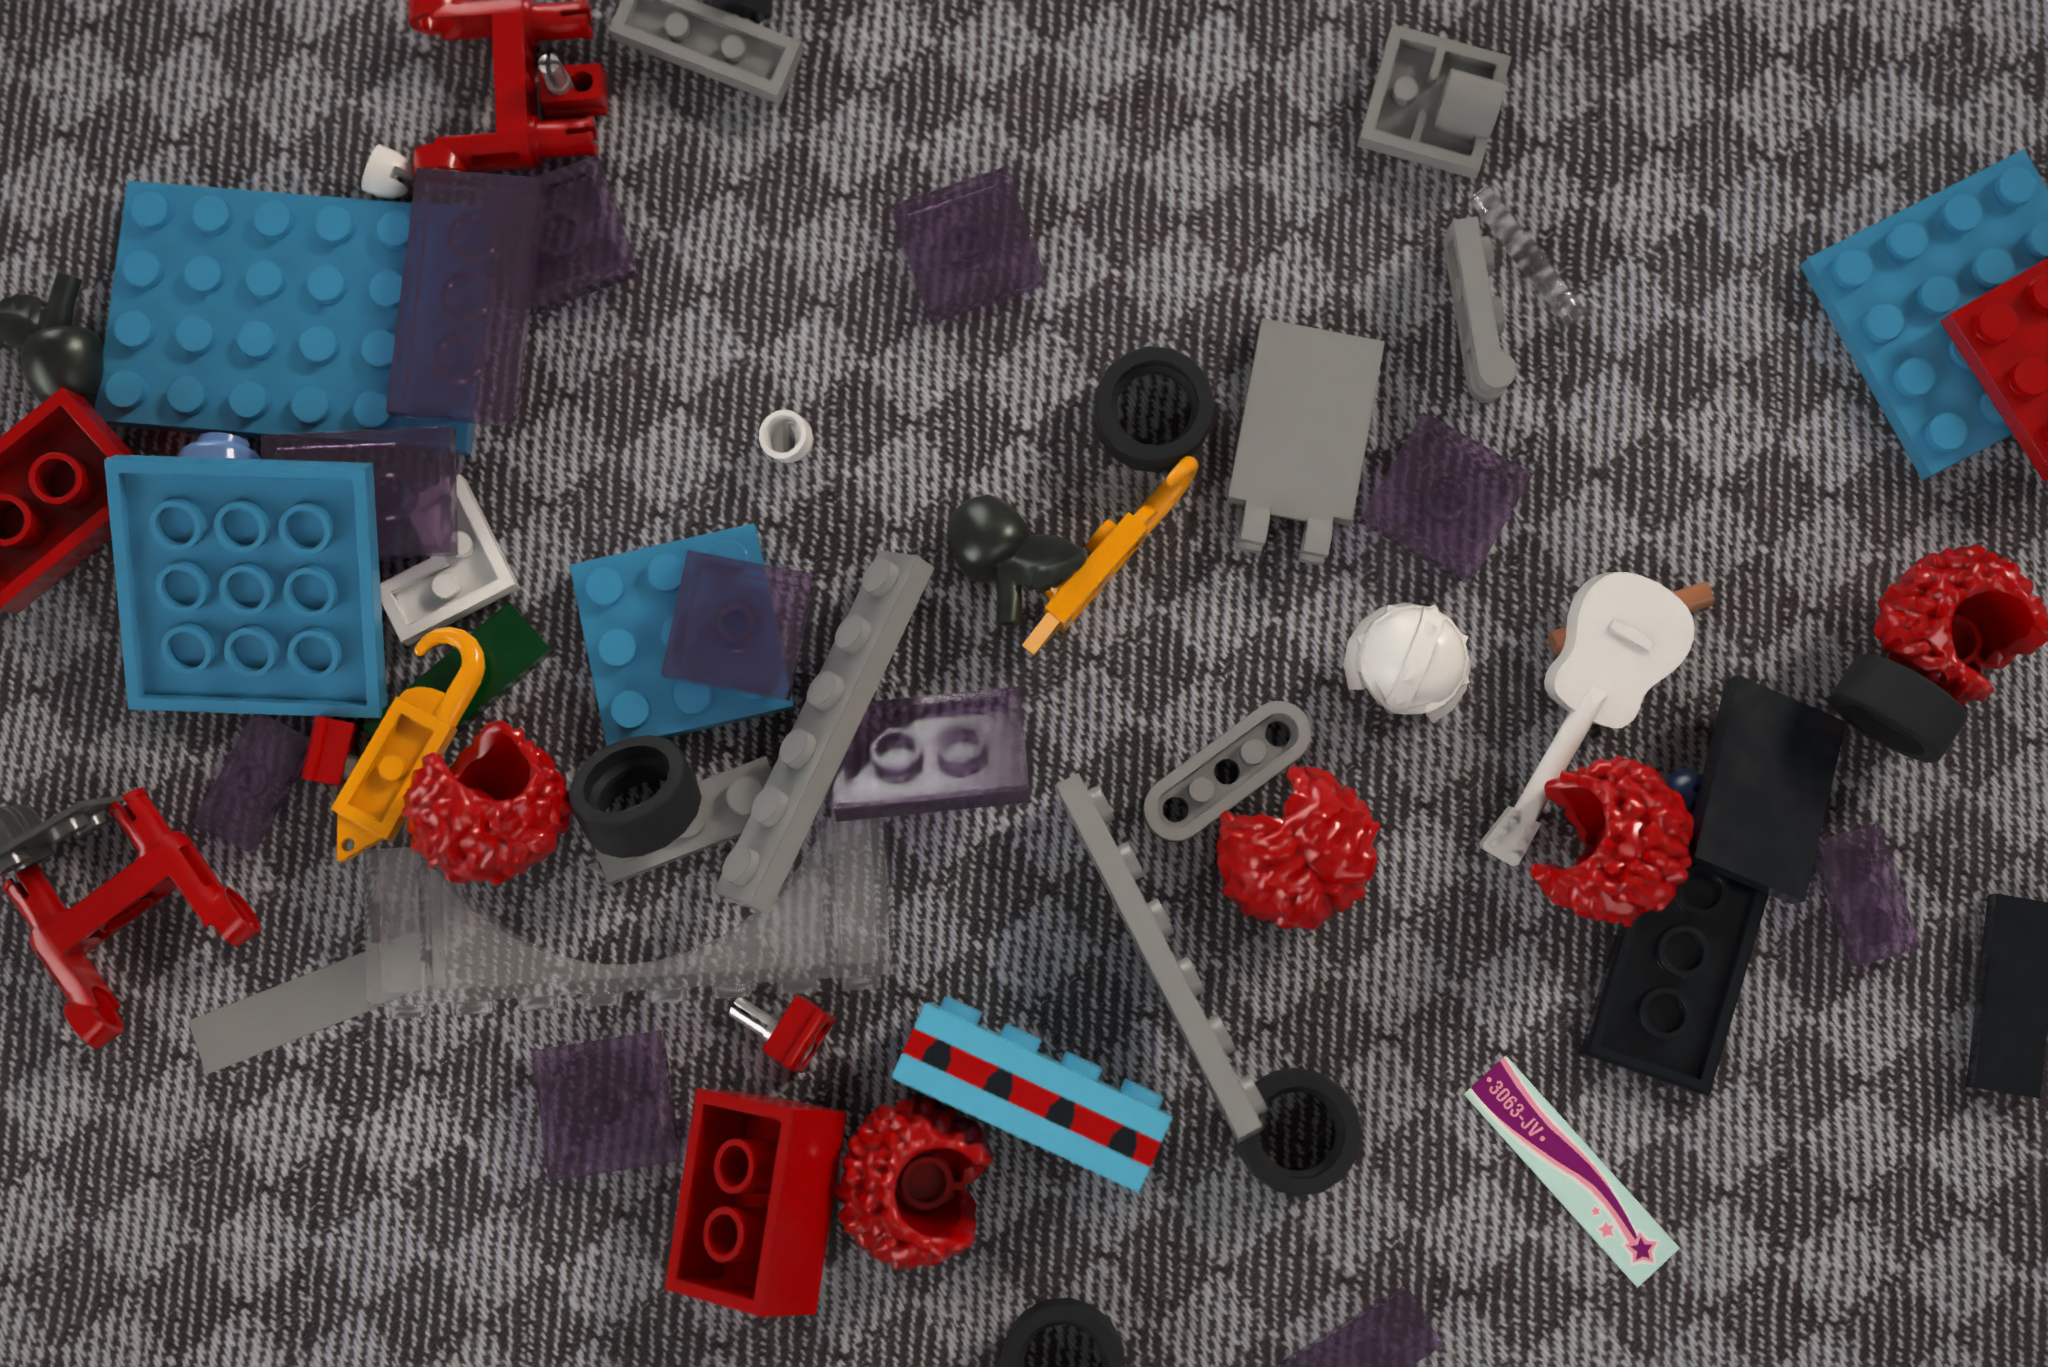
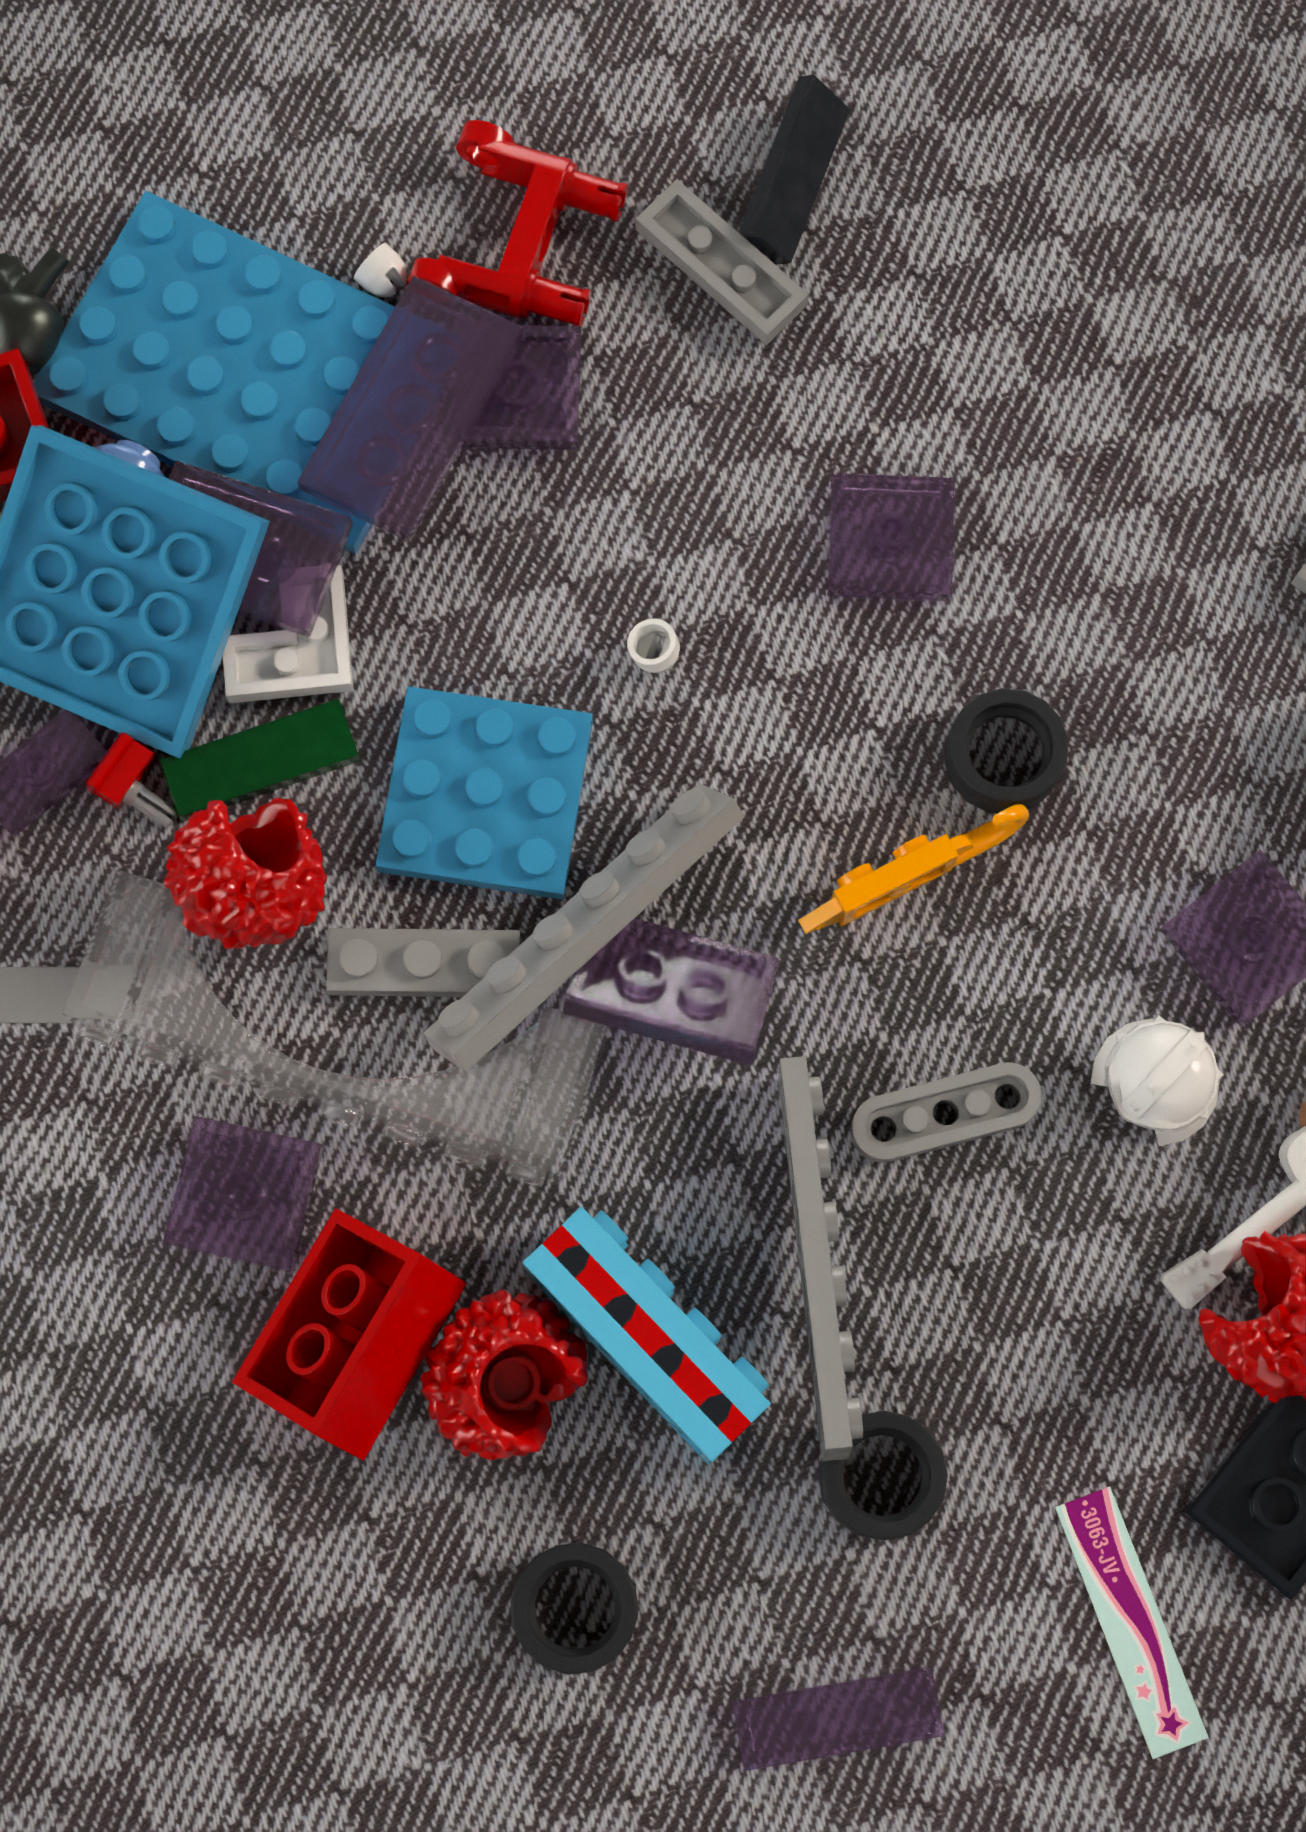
camera: 15 degrees right, 5 degrees down
(414, 726) = (212, 771): light orange plate -> none
(561, 86) = (573, 253): red piece -> none
(647, 825) = (385, 946): black tyre -> none
(738, 625) = (542, 799): clear purple plate -> none
(794, 1036) = (441, 1200): red piece -> none
(996, 546) = (810, 820): pearl dark grey piece -> none
(1303, 433) = (1139, 827): light grey tile -> none
(1307, 861) = (986, 1219): red hair -> none

